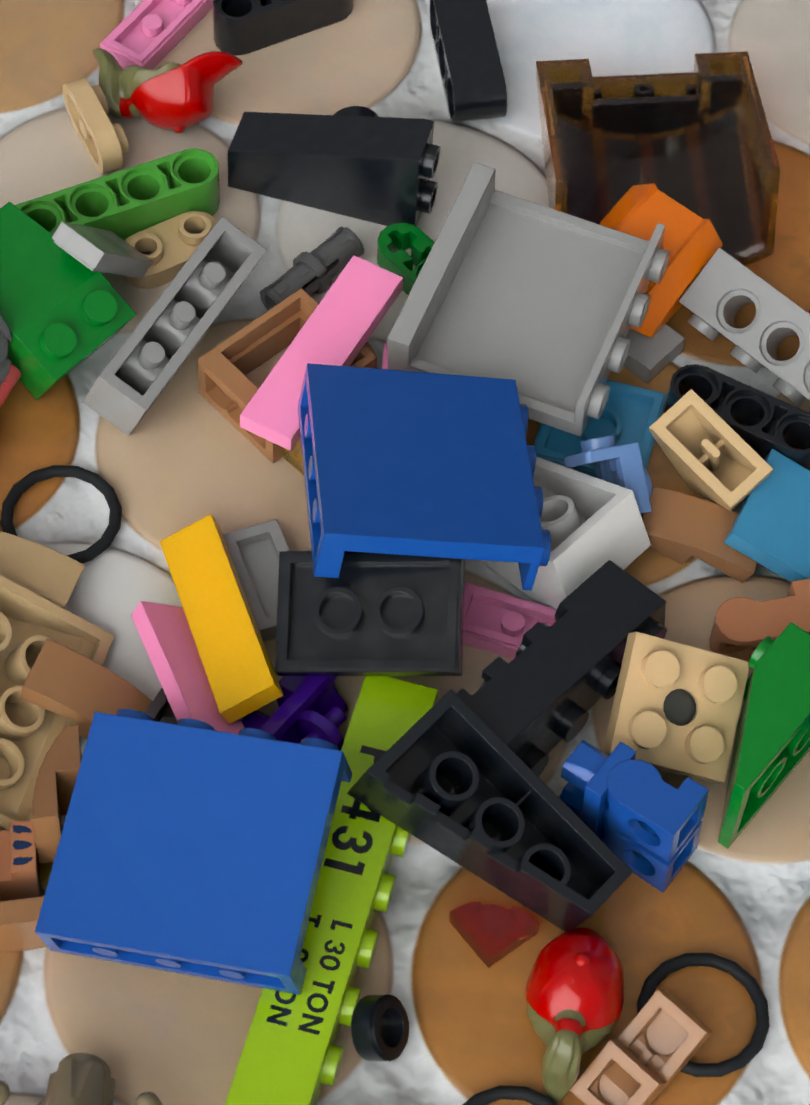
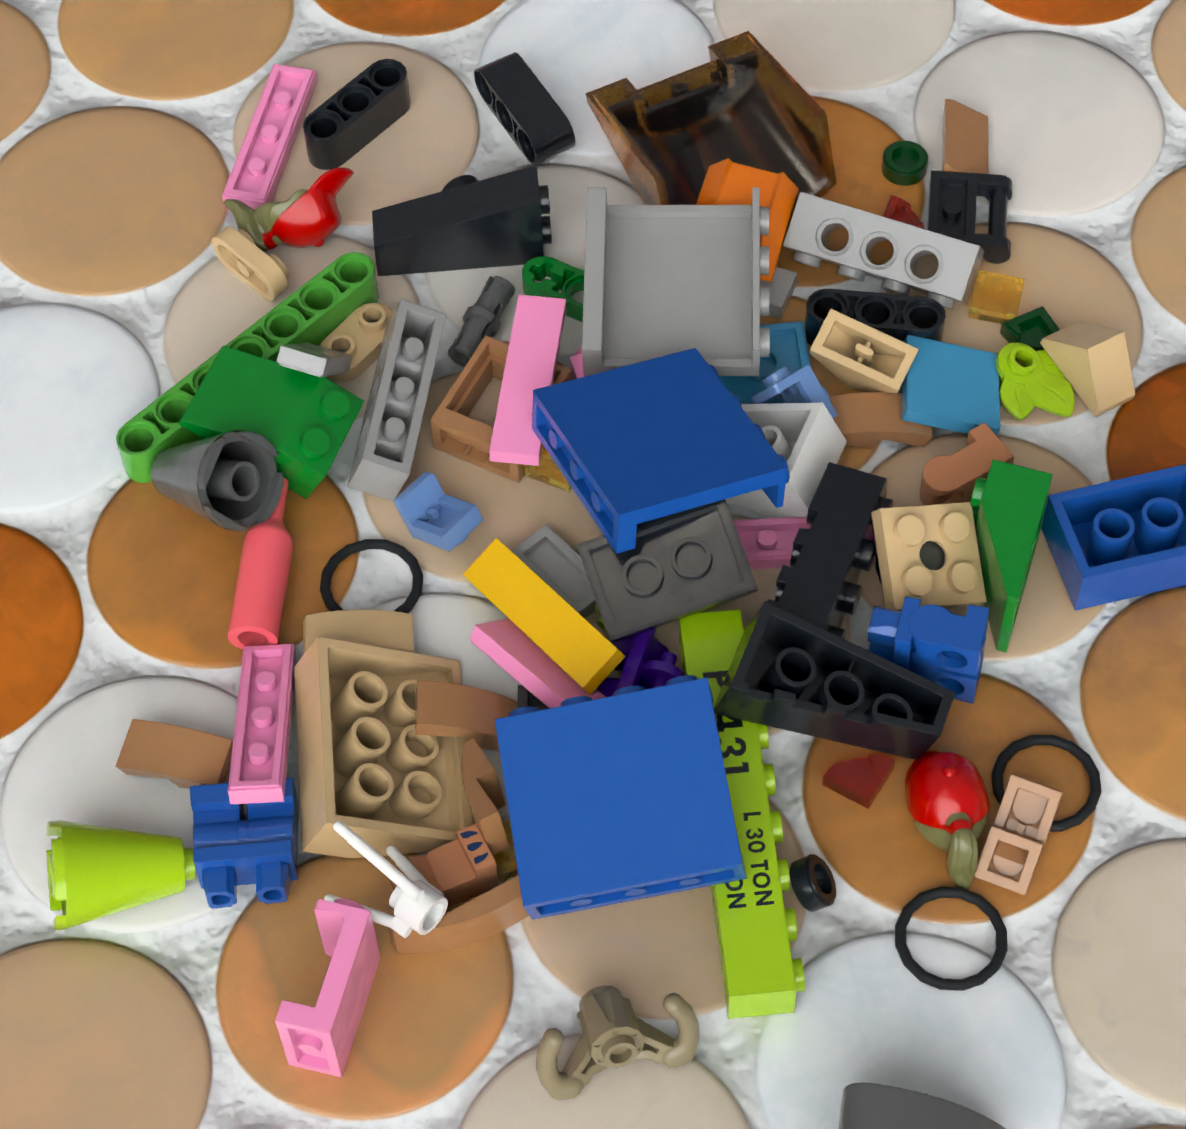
camera: 15 degrees left, 0 degrees up
(160, 465) = (435, 515): none -> medium blue bracket

